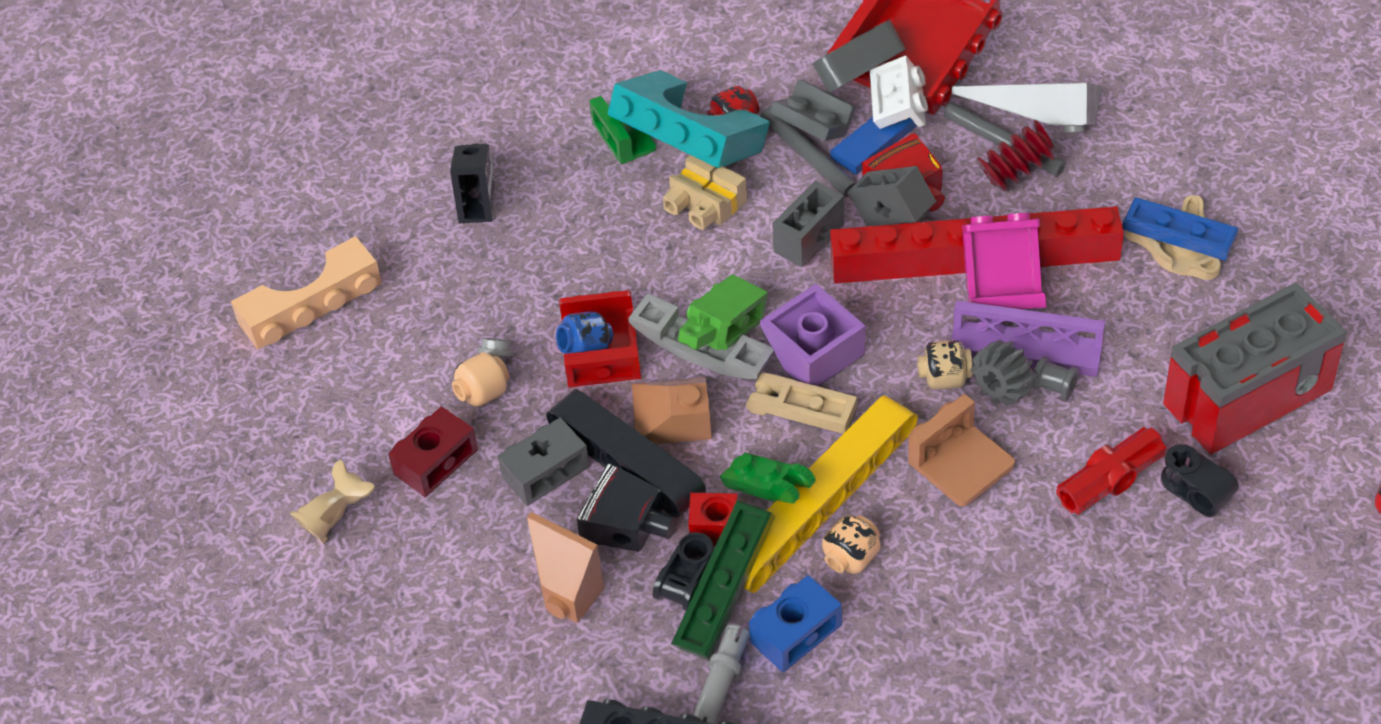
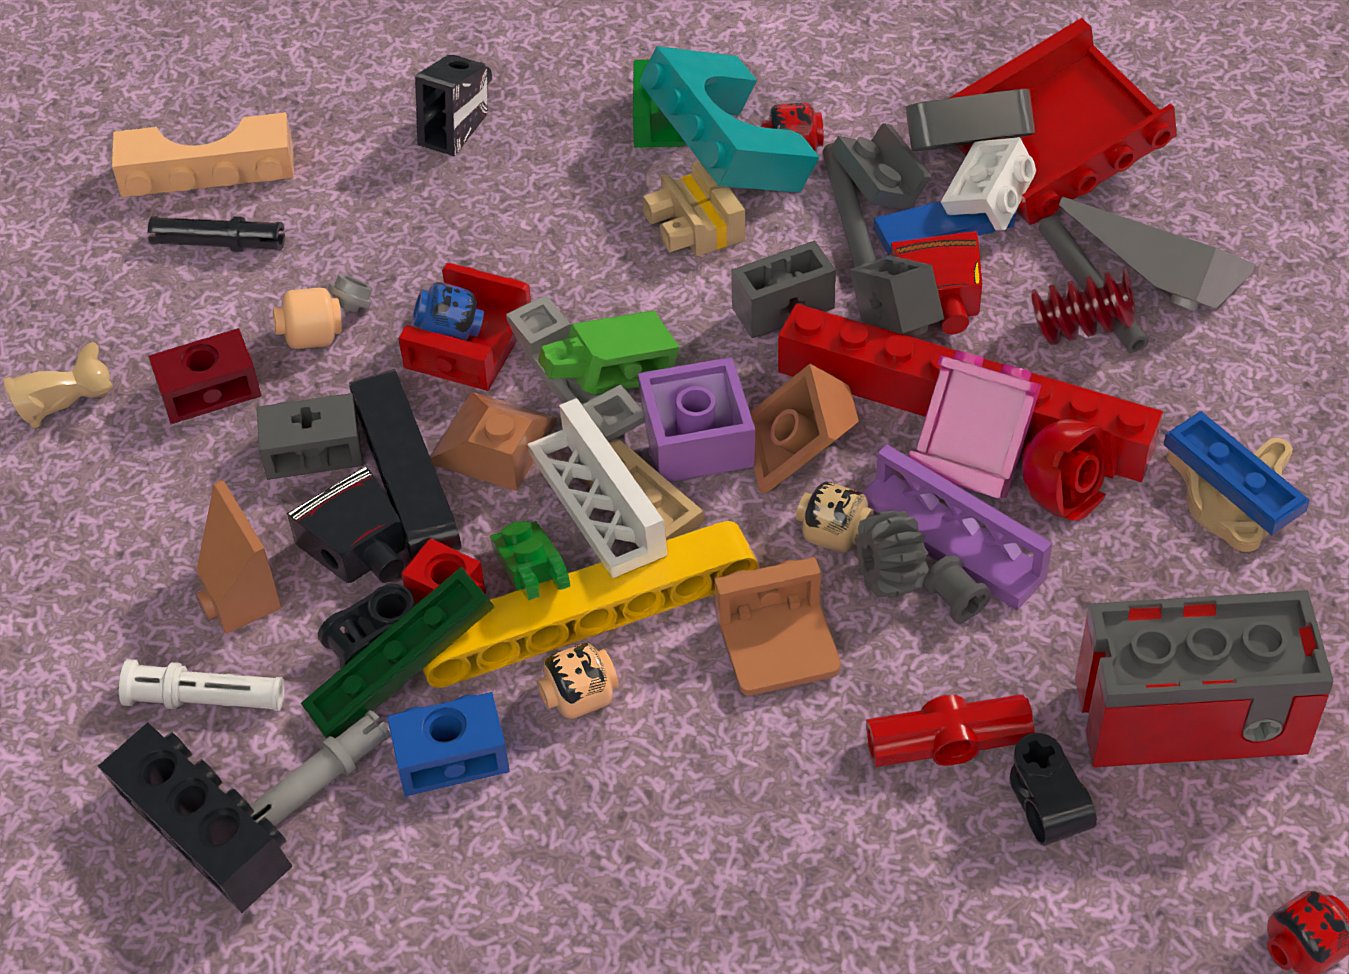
camera: 25 degrees right, 0 degrees up
(359, 346) = (219, 233): none -> black pin
(576, 670) = (176, 685): none -> white pin
(793, 401) = (612, 479): none -> white fence
(888, 310) = (799, 424): none -> nougat slope
(1074, 268) = (1068, 466): none -> red cylinder

